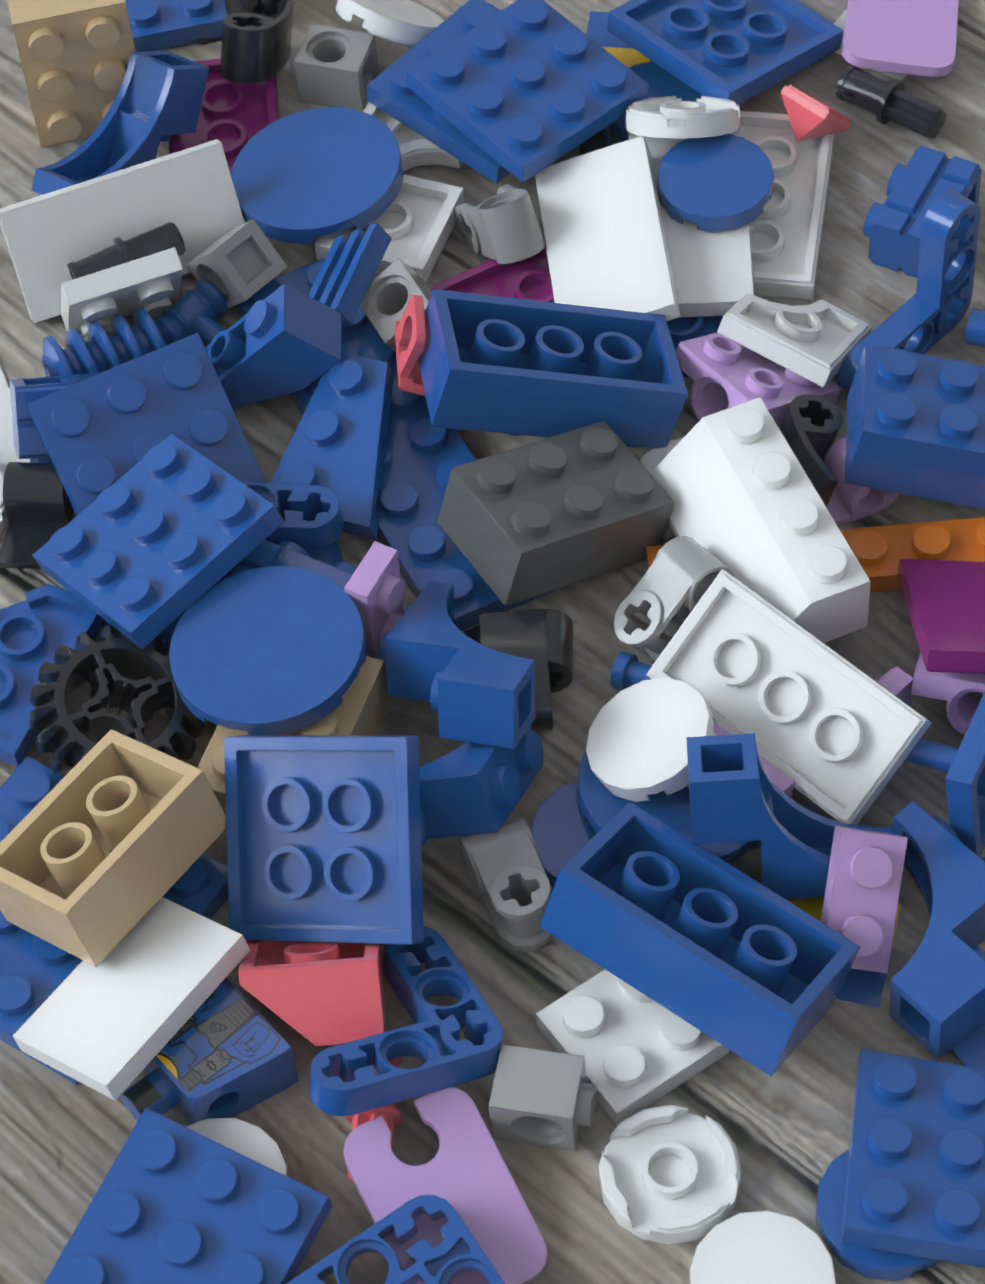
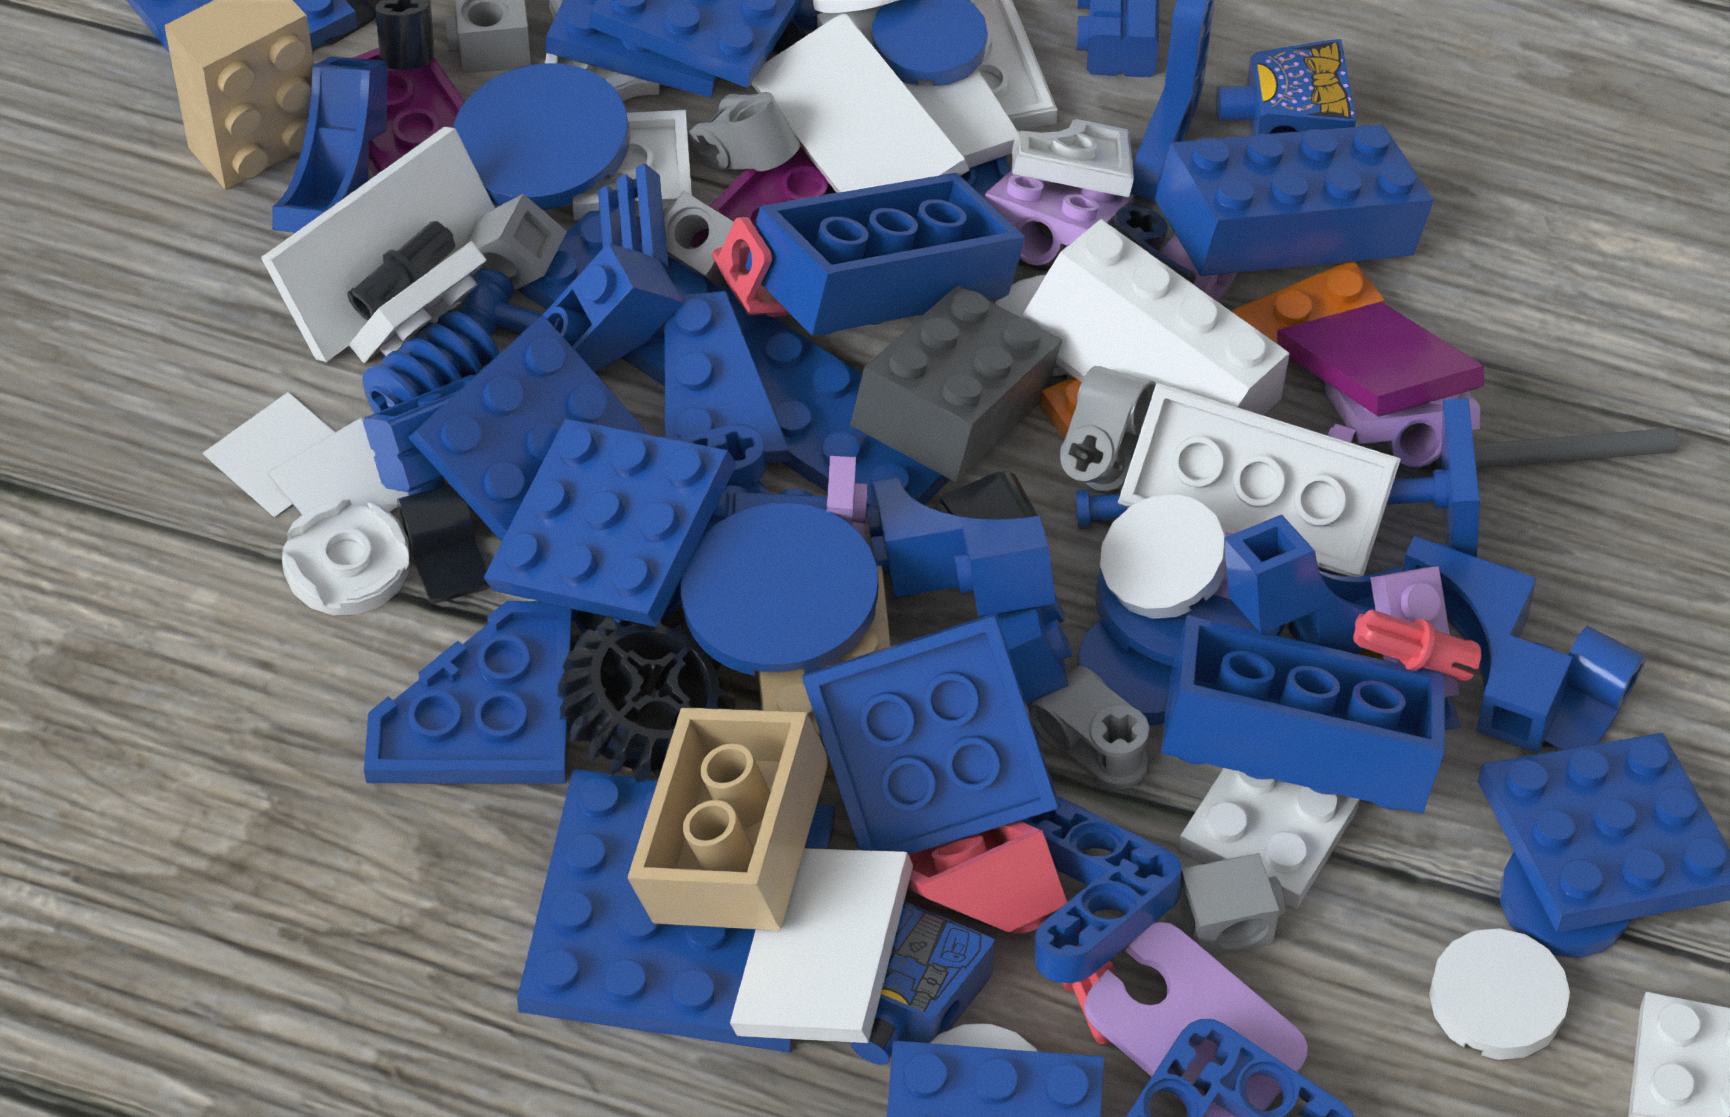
camera: 30 degrees left, 0 degrees up
(669, 1175) = (1369, 933): white tile -> none
(841, 907) = (1417, 644): none -> coral axle

